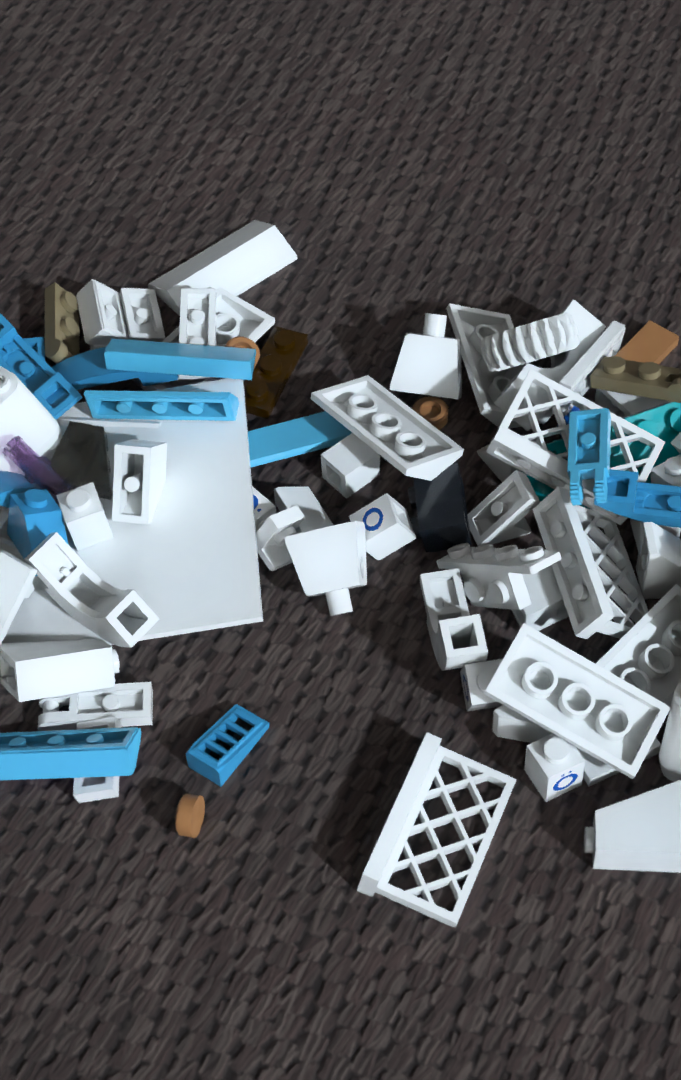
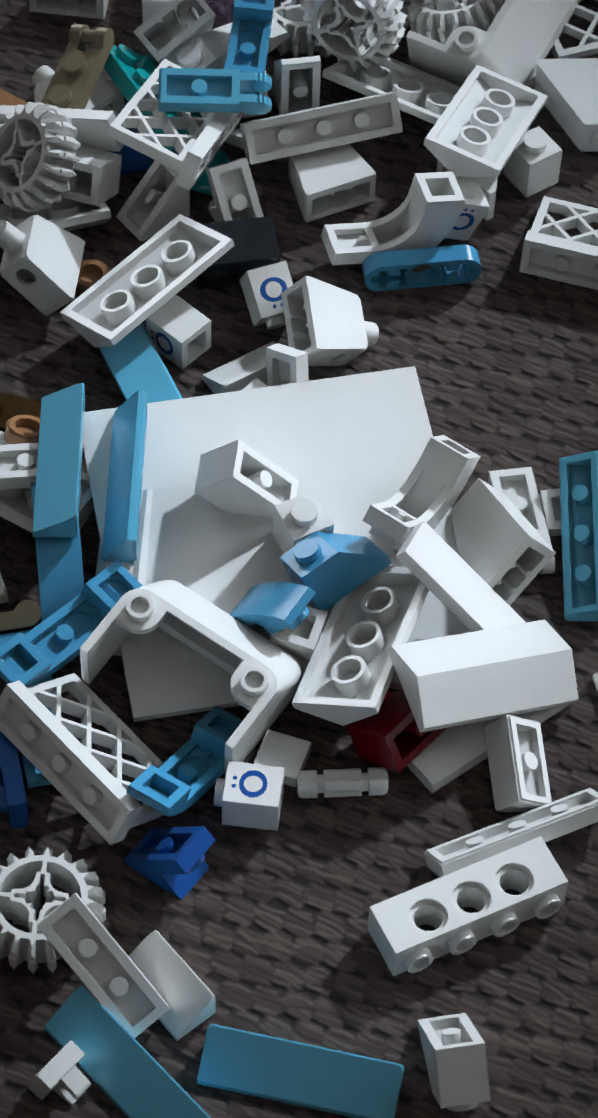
camera: 100 degrees left, 0 degrees up
(36, 468) = (241, 580): clear purple pin -> none
(84, 457) = (208, 557): clear smoke wing -> none
(220, 770) = (547, 425): dark azure slope -> none
(416, 657) = (392, 261): none -> dark azure beam
(495, 574) = (333, 186): white bracket -> none

